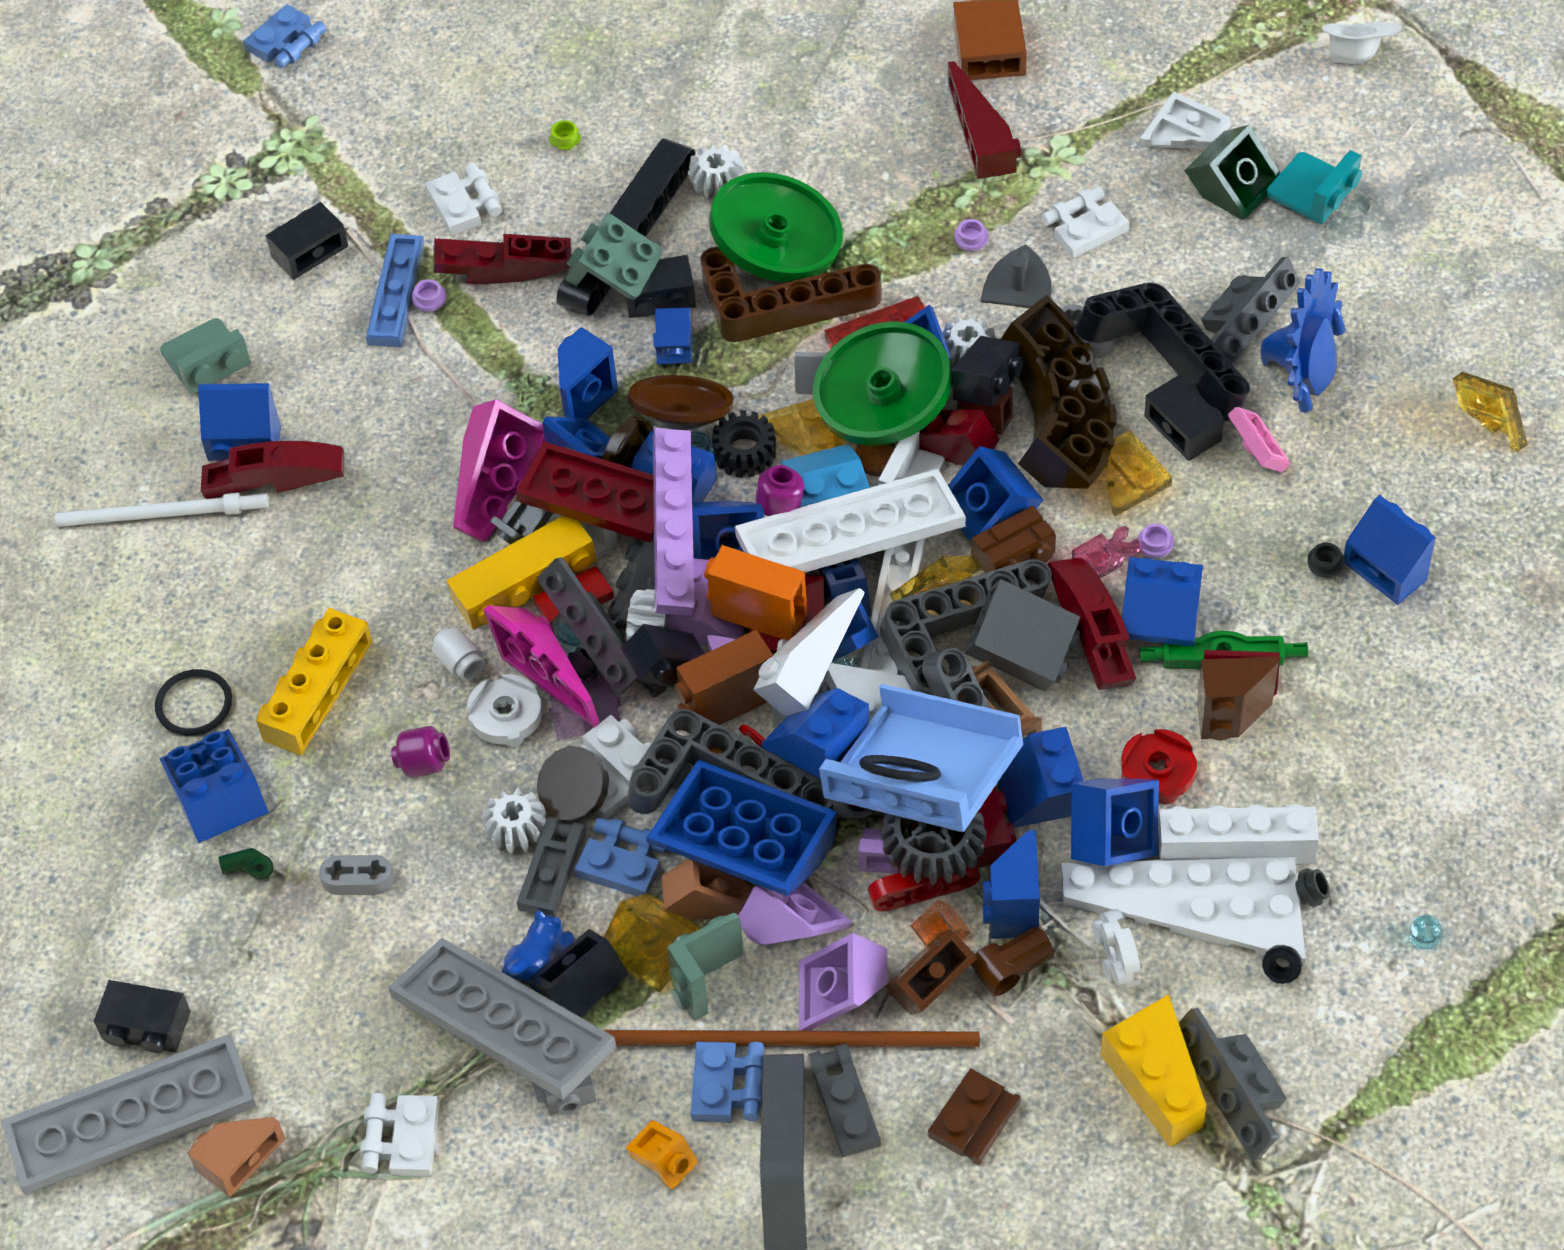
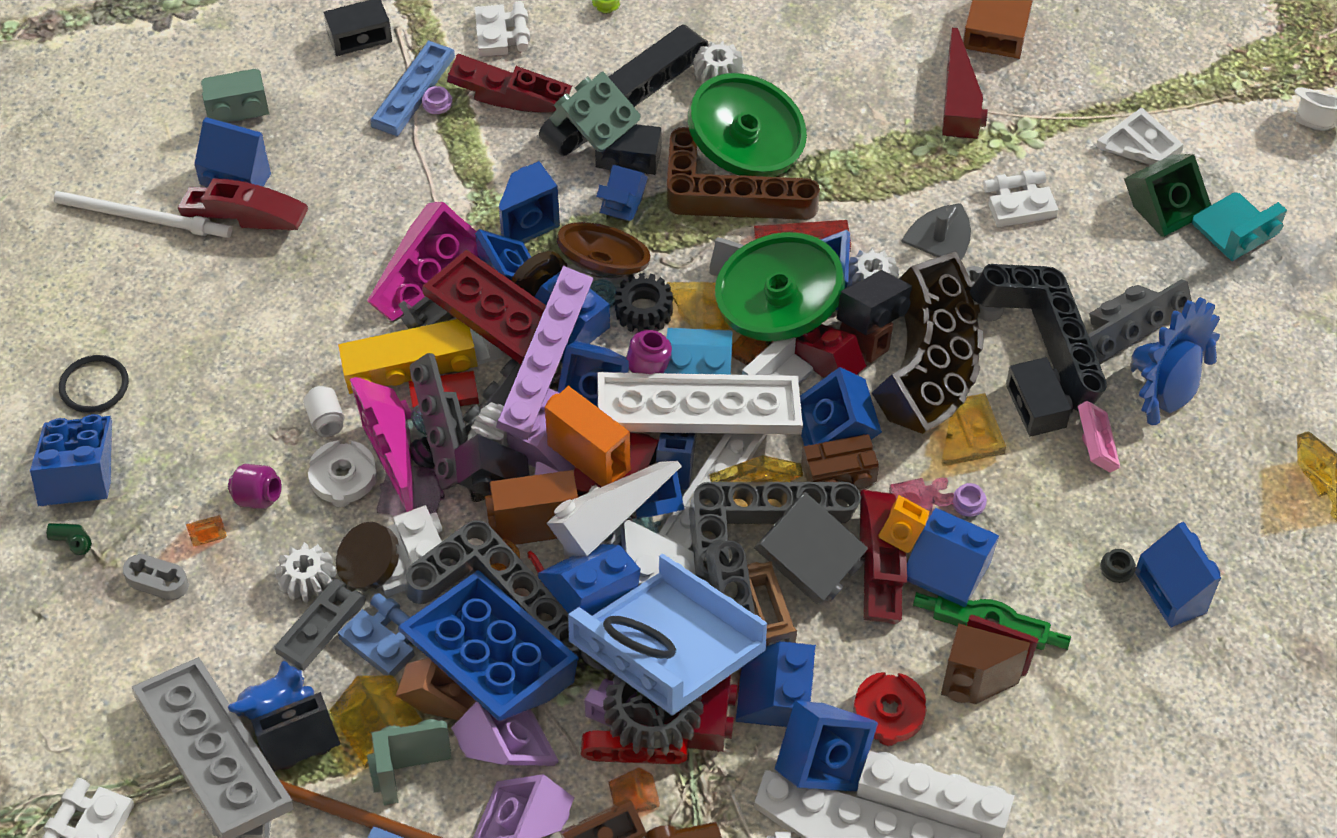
camera: 15 degrees right, 0 degrees up
(314, 681) = (195, 397): yellow brick -> none
(389, 812) = (206, 530): none -> clear orange slope
(971, 235) = (915, 181): lavender plate -> none
(1013, 892) = (707, 781): blue slope -> none
(1107, 582) = (904, 524): none -> light orange bracket

